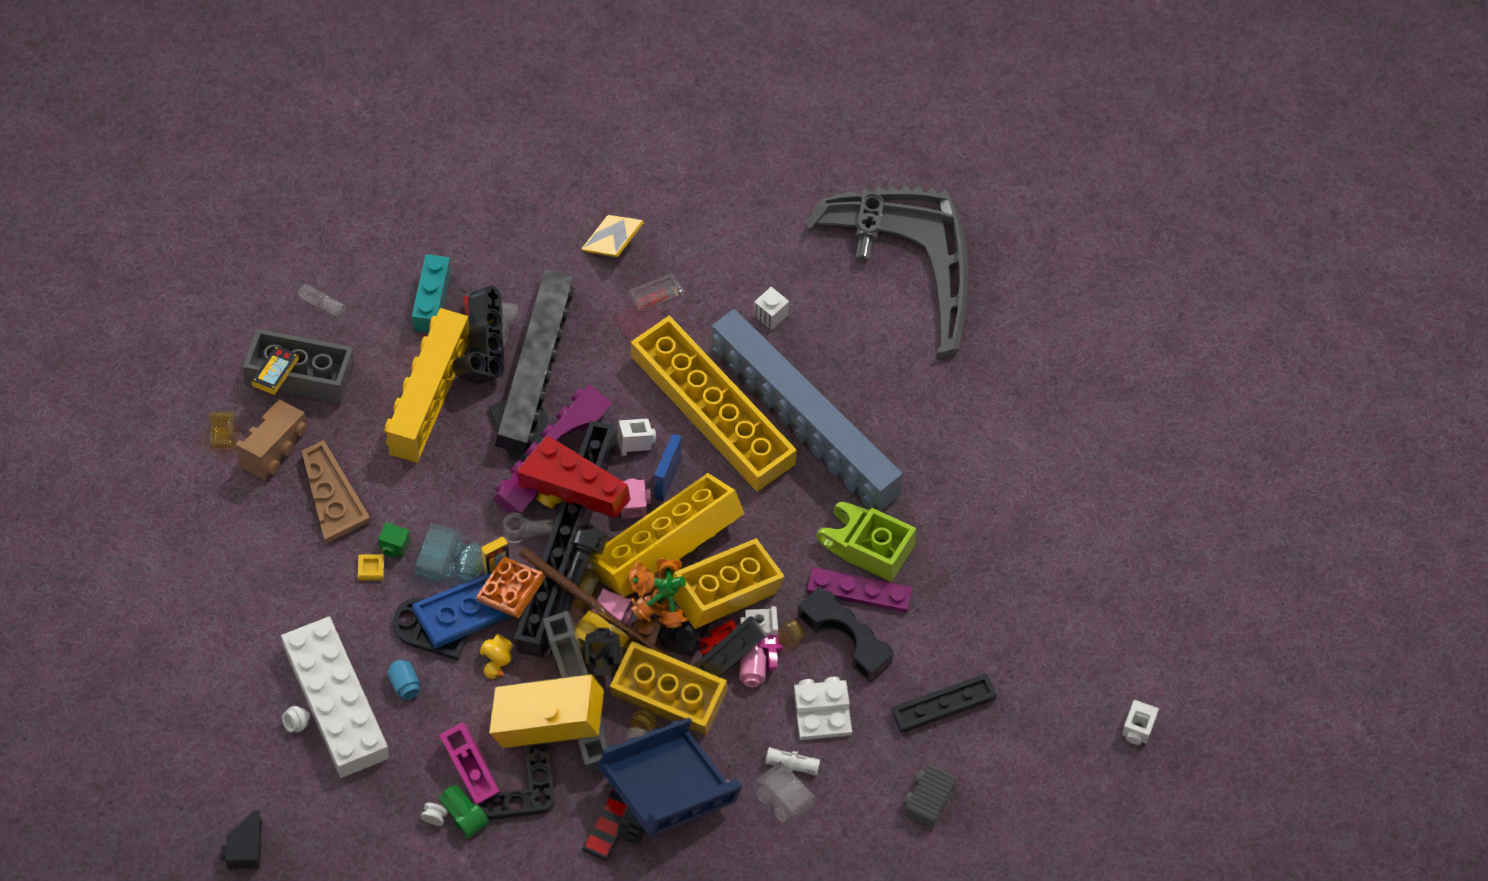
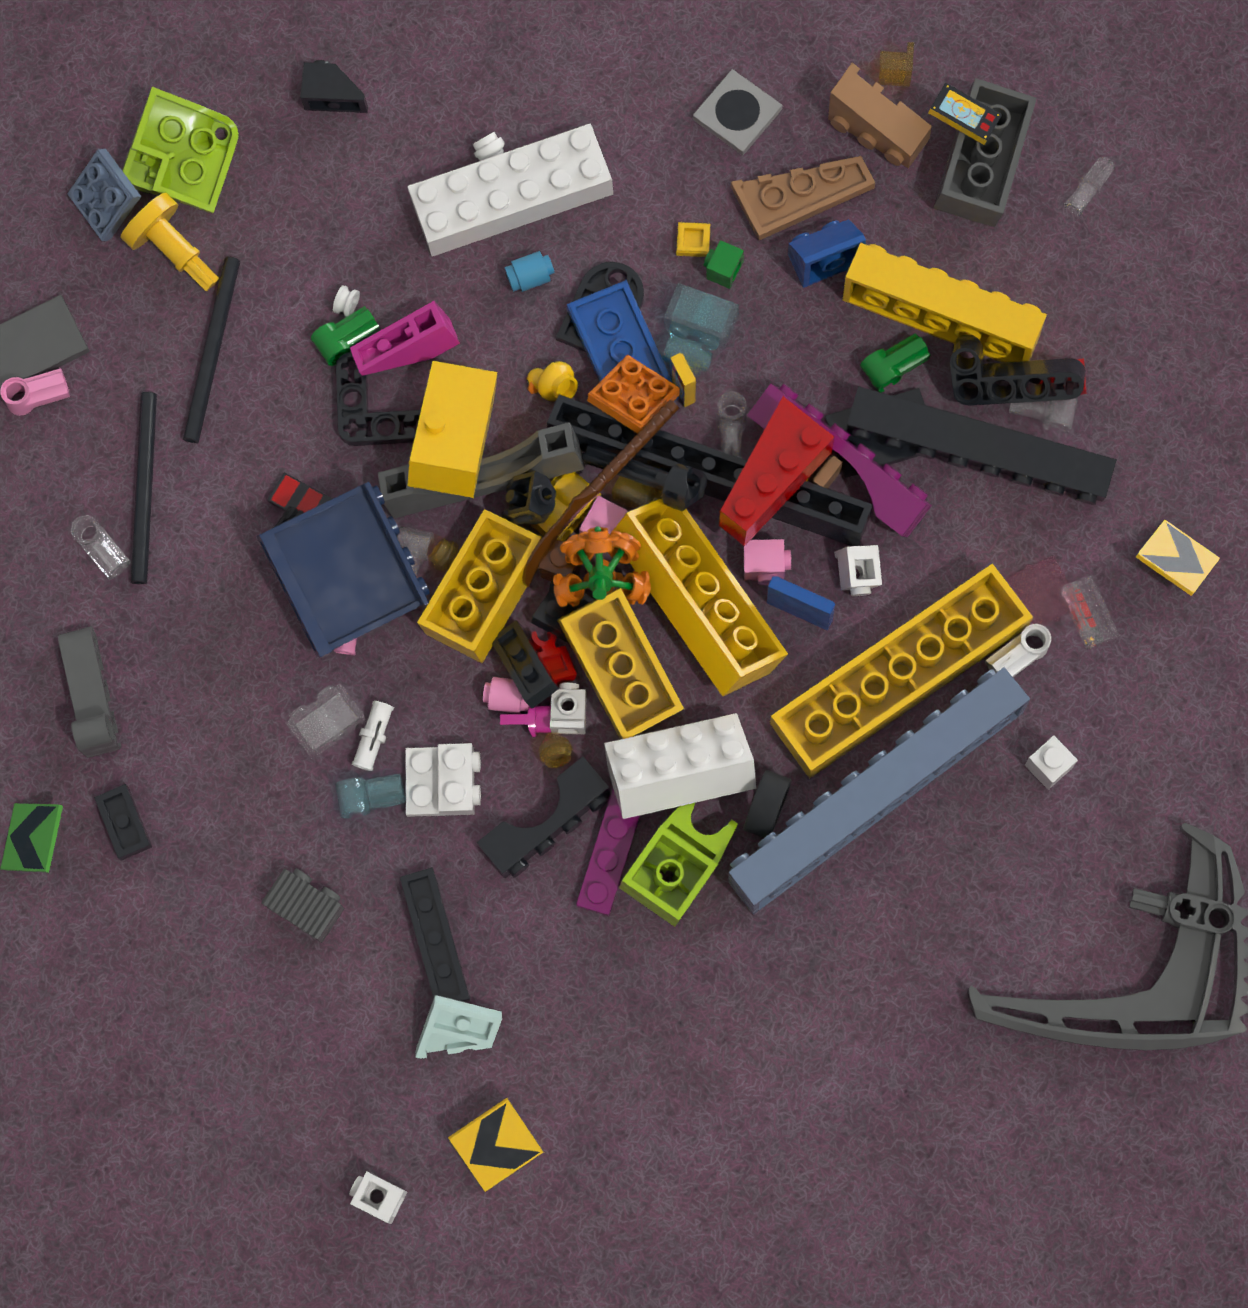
camera: 105 degrees right, 15 degrees up
(261, 542) = (737, 112): none -> light grey tile
(382, 467) = (825, 251): none -> blue slope
(431, 291) = (1092, 318): teal brick -> none
(472, 425) = (890, 365): none -> green piece
(693, 328) = (1017, 654): none -> white piece
(800, 537) = (680, 766): none -> white brick
(822, 481) = (767, 804): none -> black tyre
(840, 761) = (363, 795): none -> clear light blue piece
(1008, 680) = (457, 1027): none -> light aqua wing
(1090, 646) = (495, 1144): none -> yellow piece

